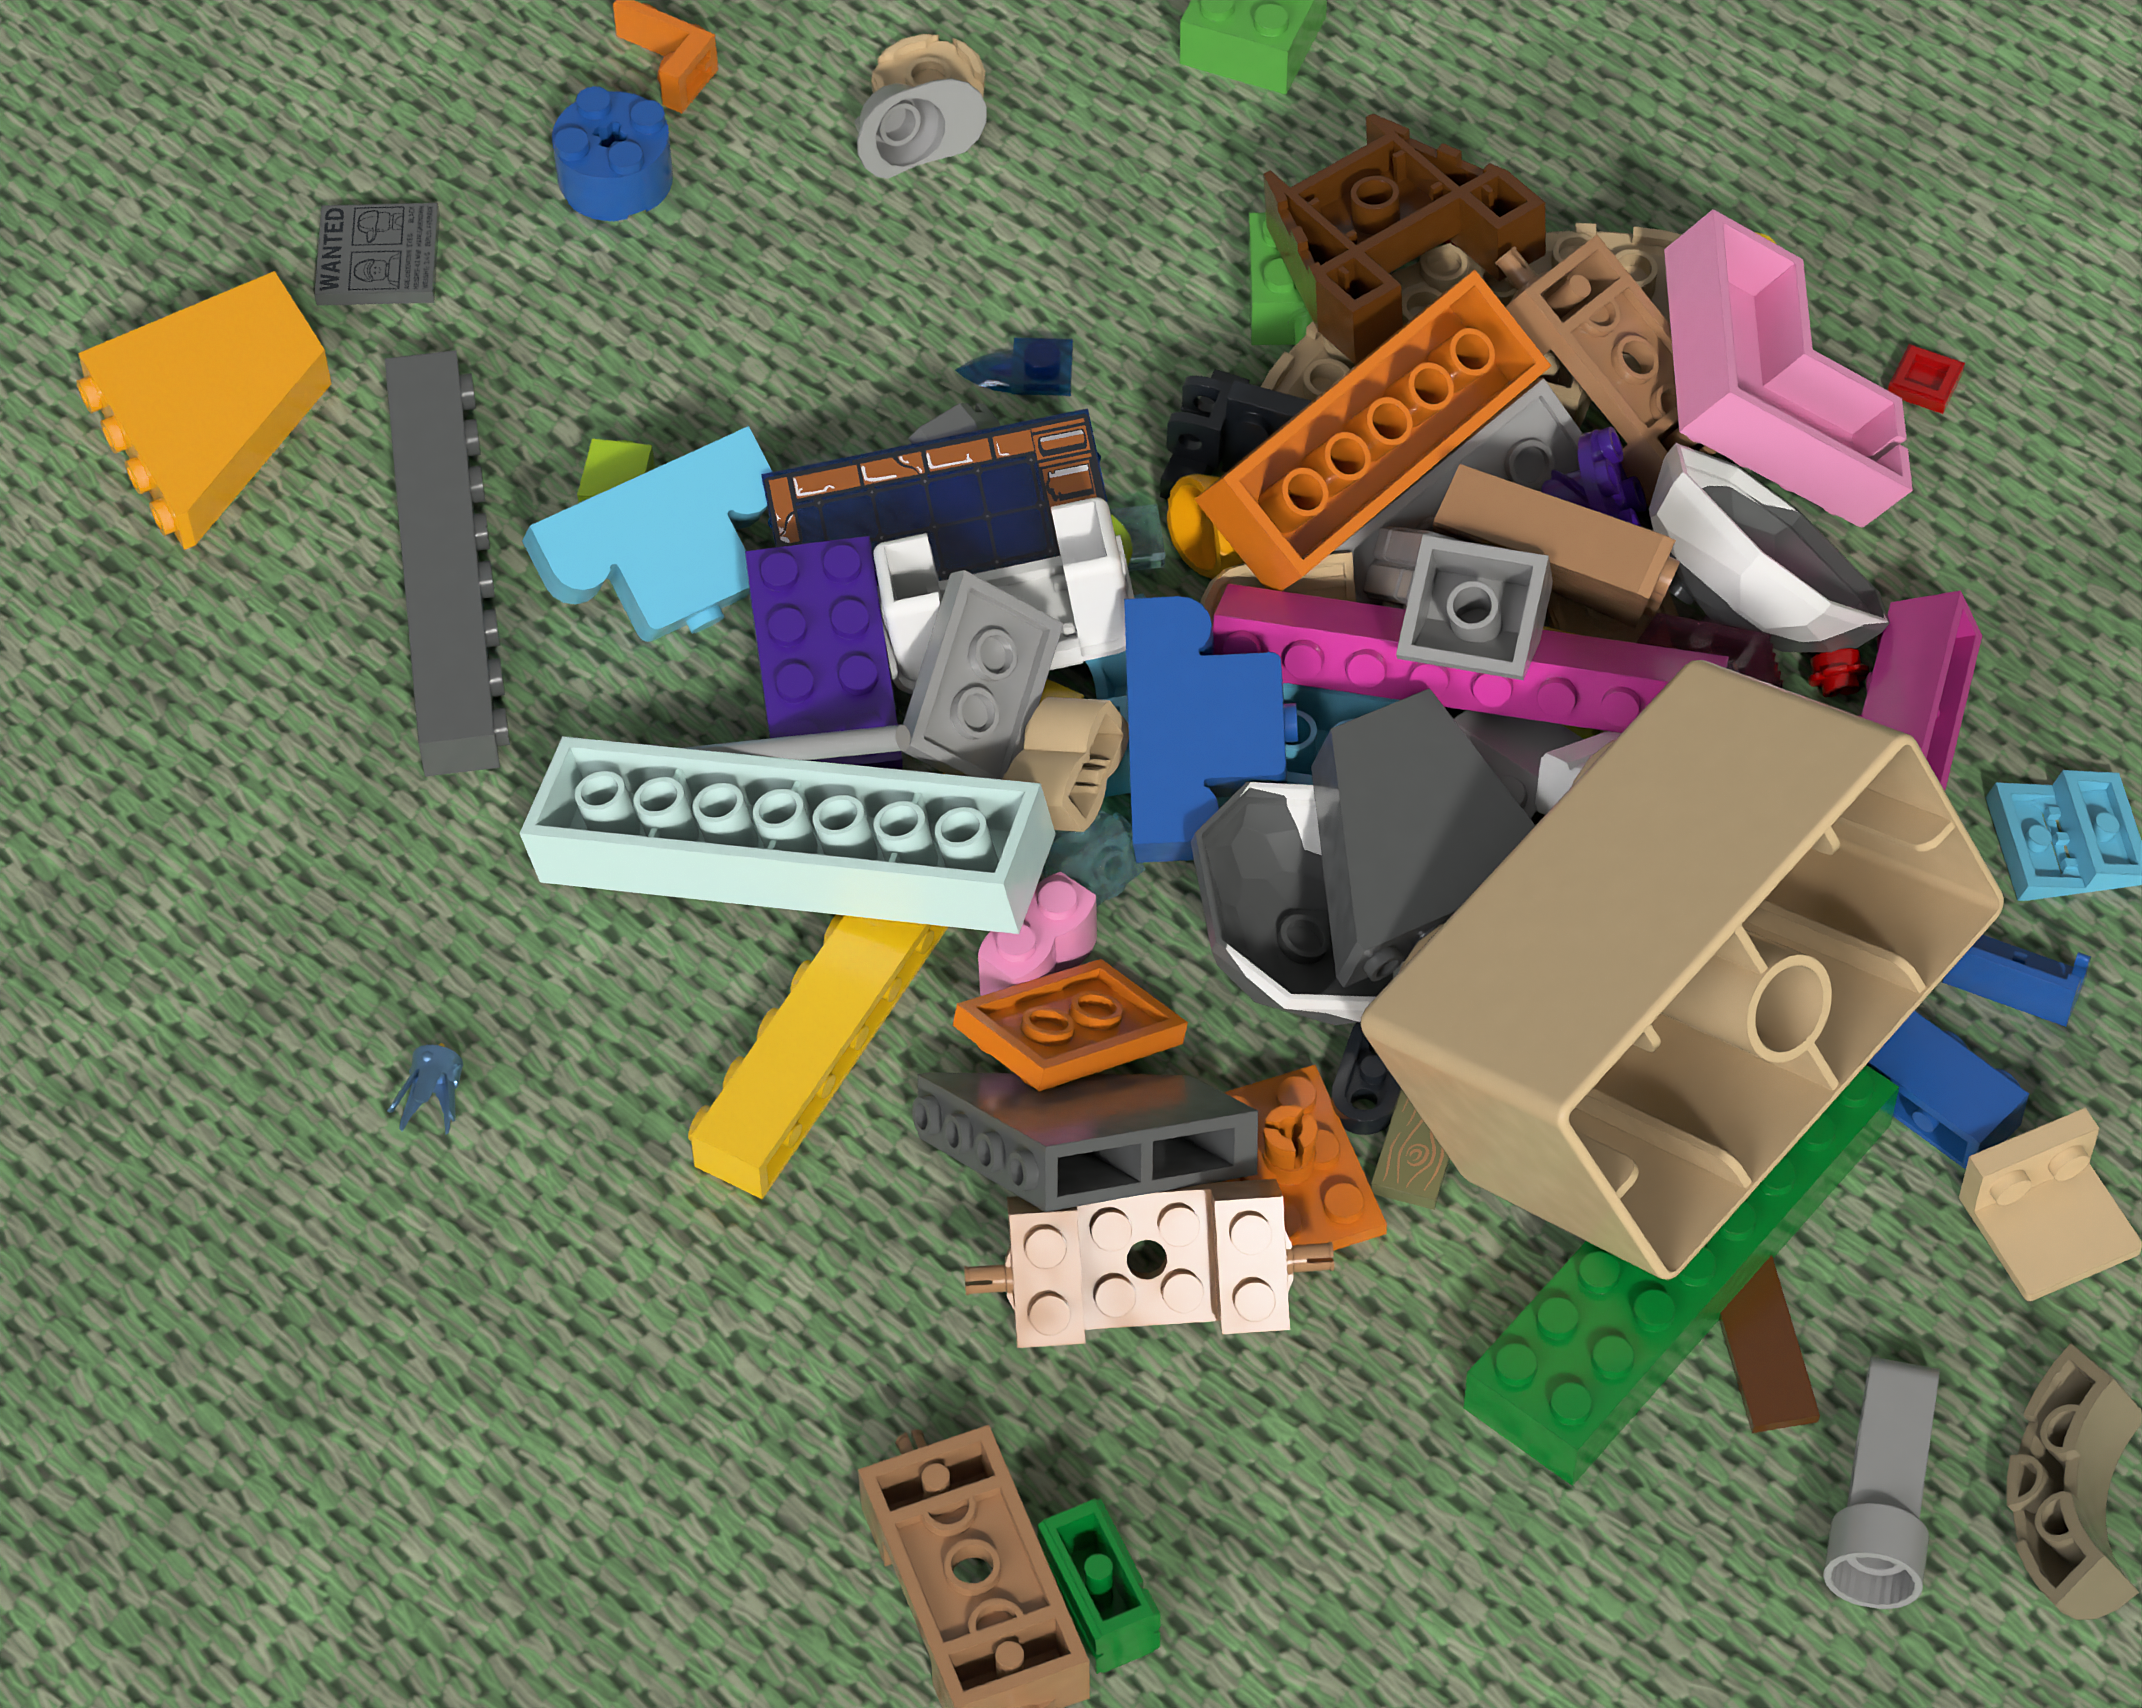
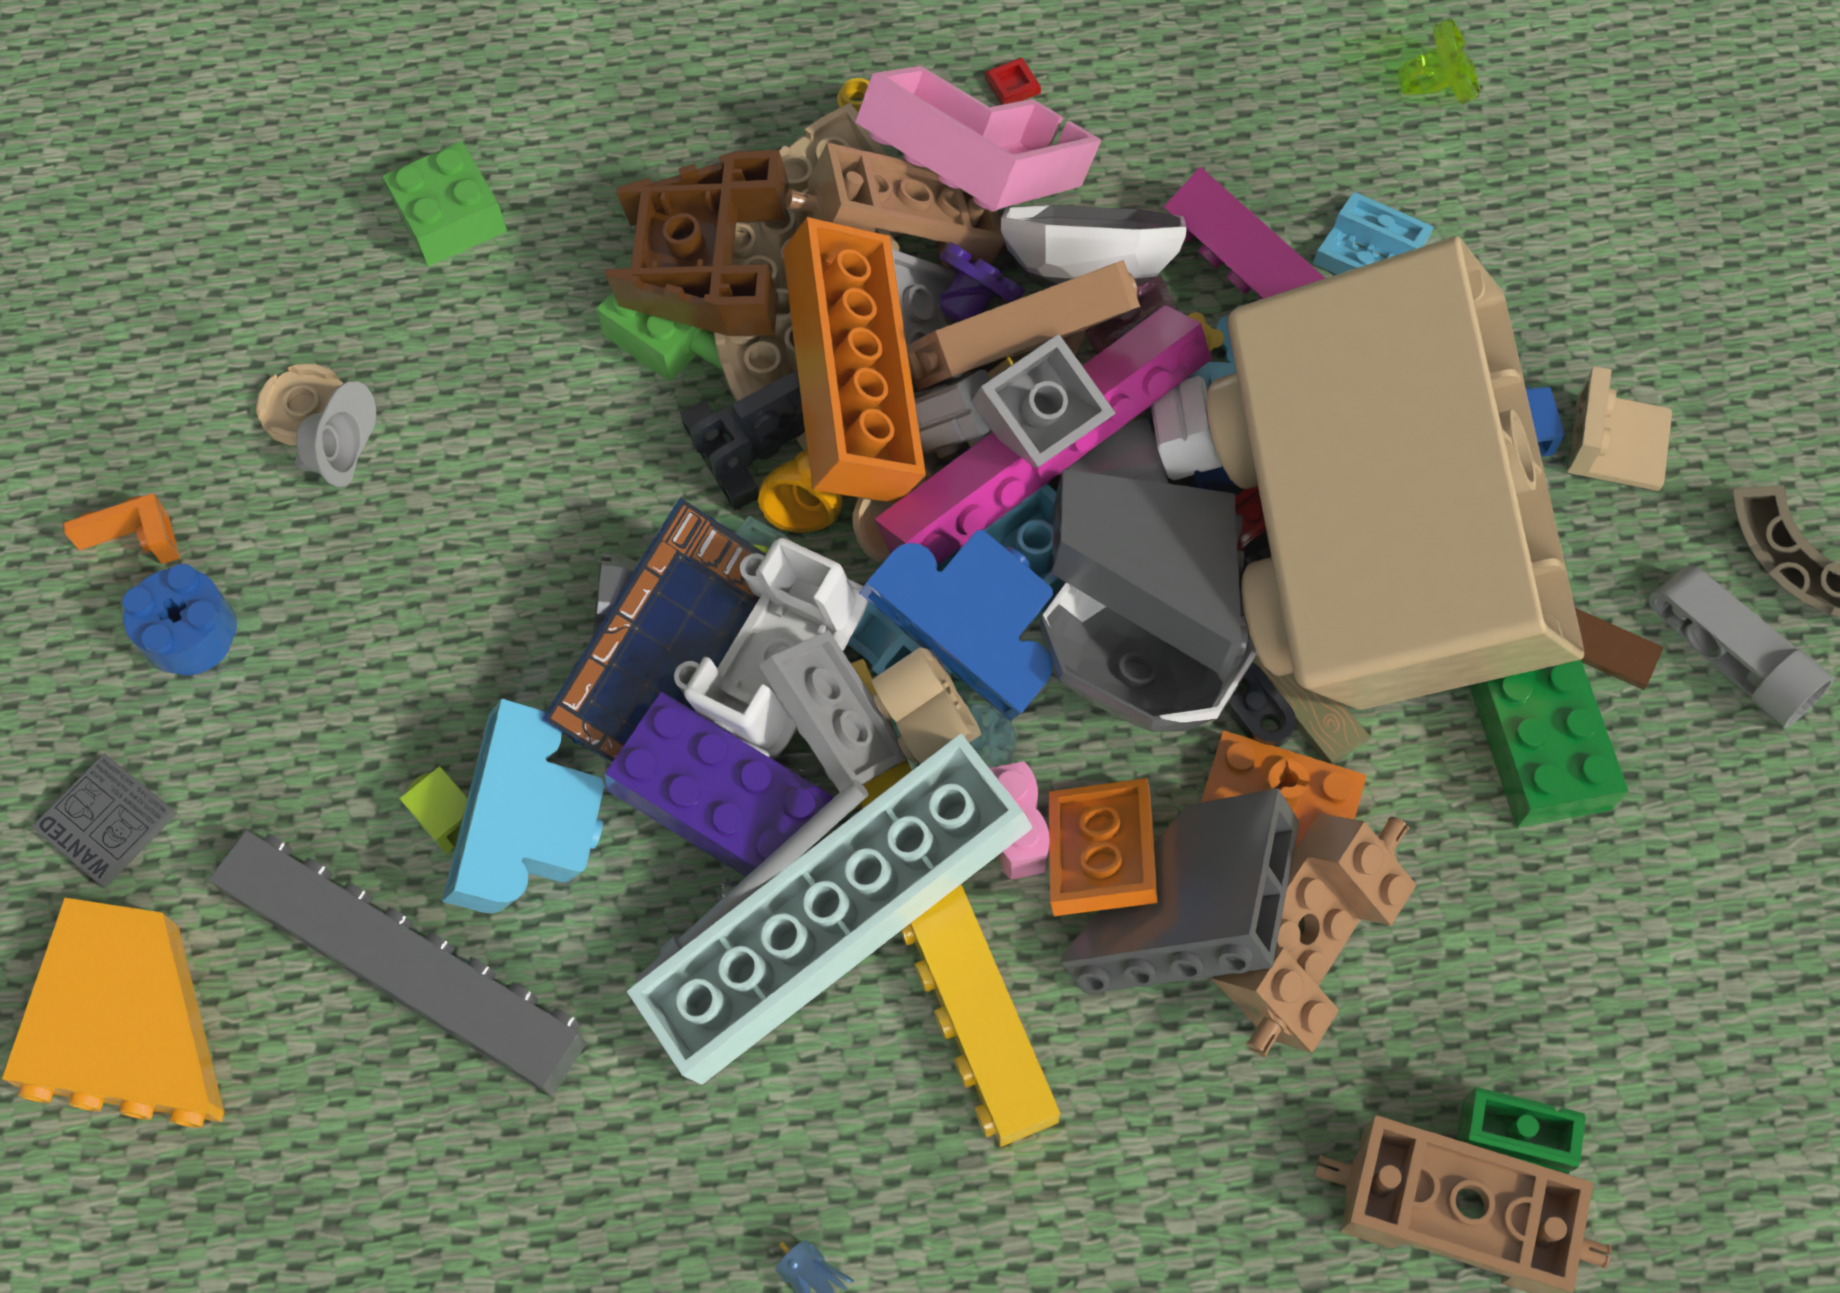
camera: 50 degrees left, 10 degrees up
(1031, 368) = (571, 512): clear blue plate -> none
(1838, 672) = (1178, 269): red plate -> none

